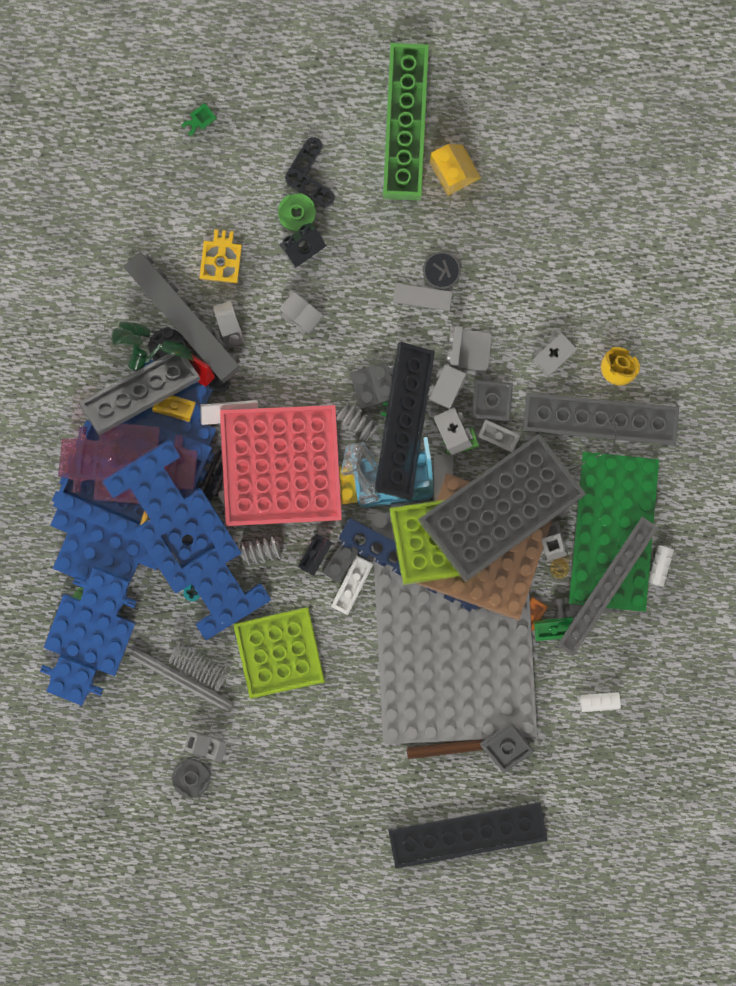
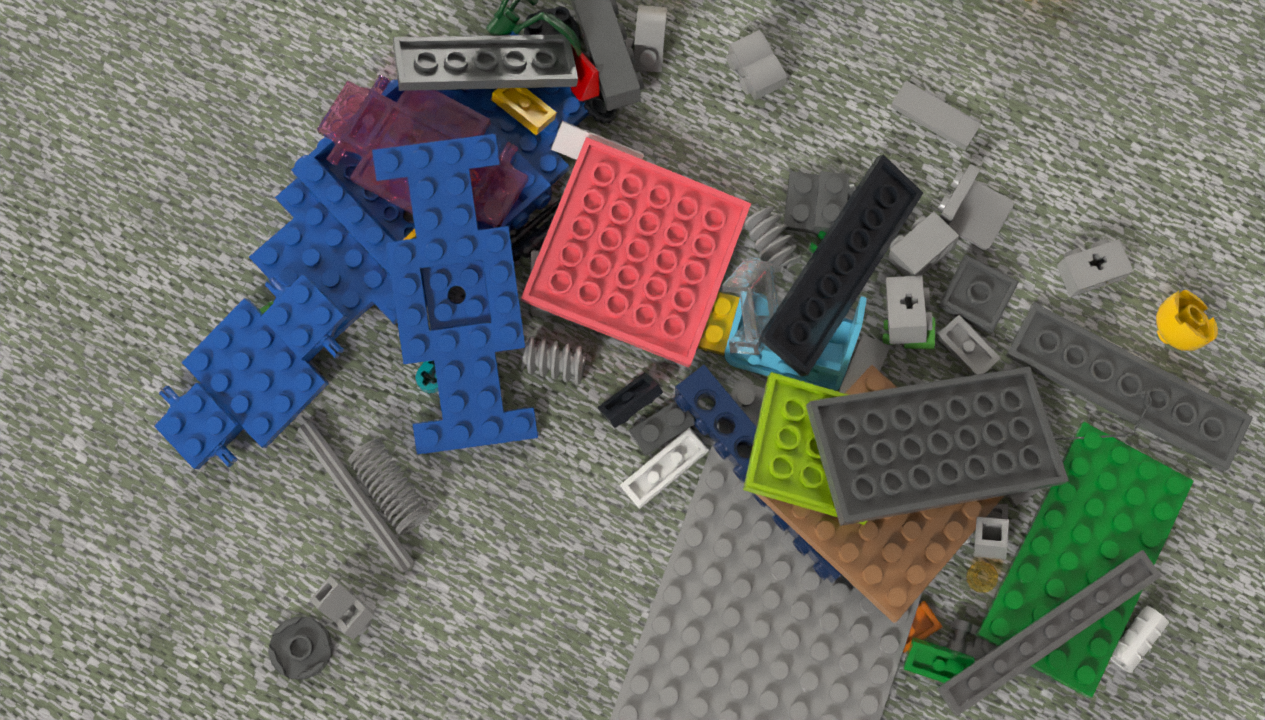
camera: 20 degrees right, 10 degrees down
(279, 652) = (514, 520): lime tile -> none
(441, 270) = (977, 90): black tile -> none

